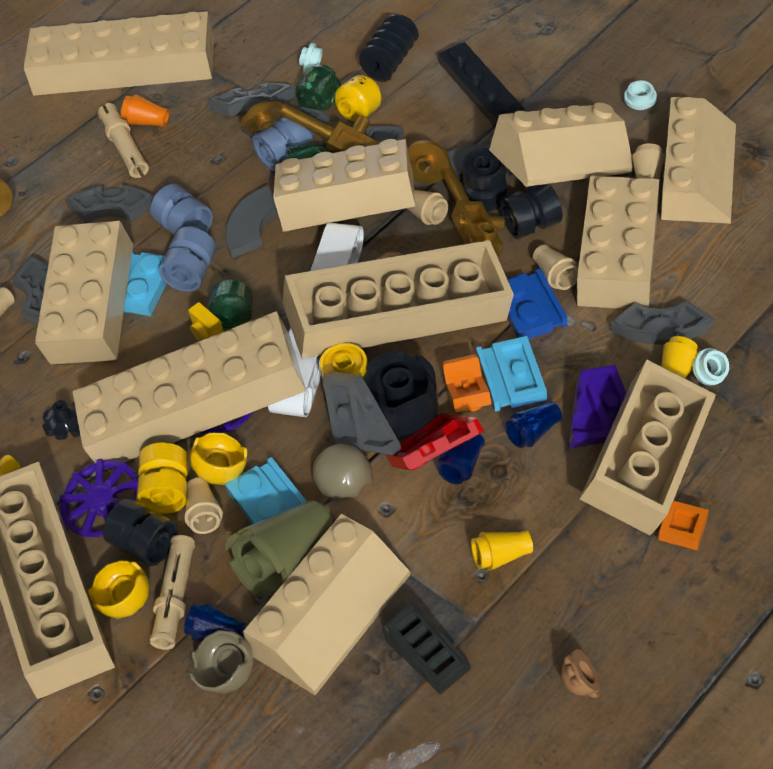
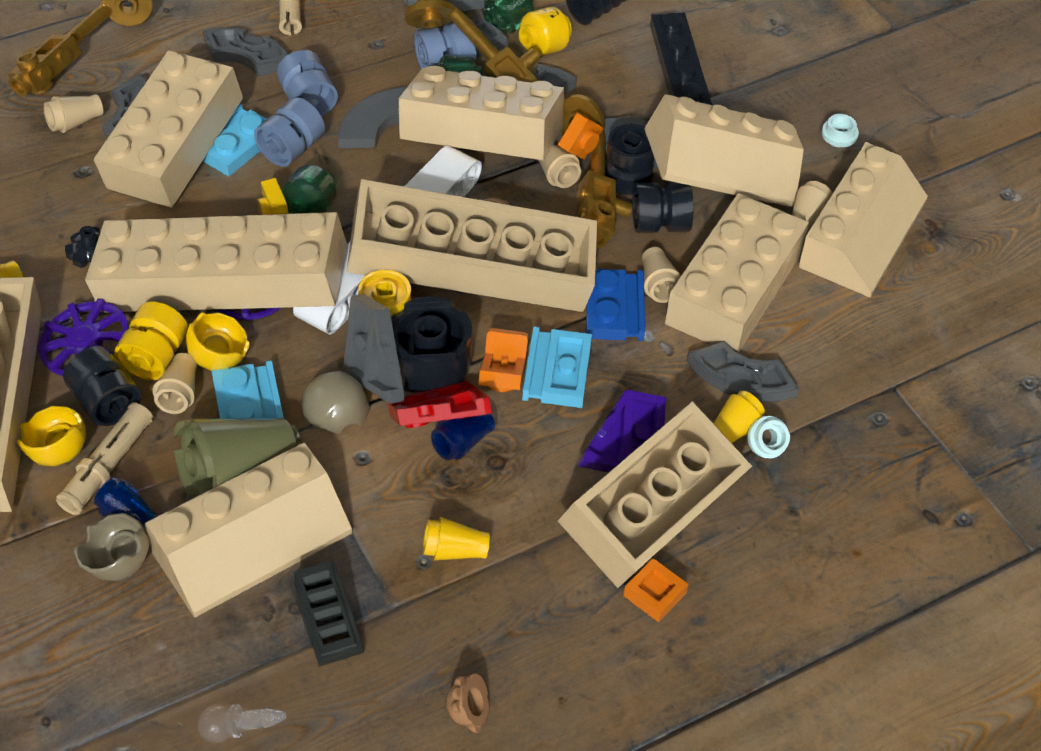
camera: 10 degrees right, 0 degrees up
(437, 175) = (581, 136): none -> orange plate
(531, 425) = (550, 427): clear blue cone -> none

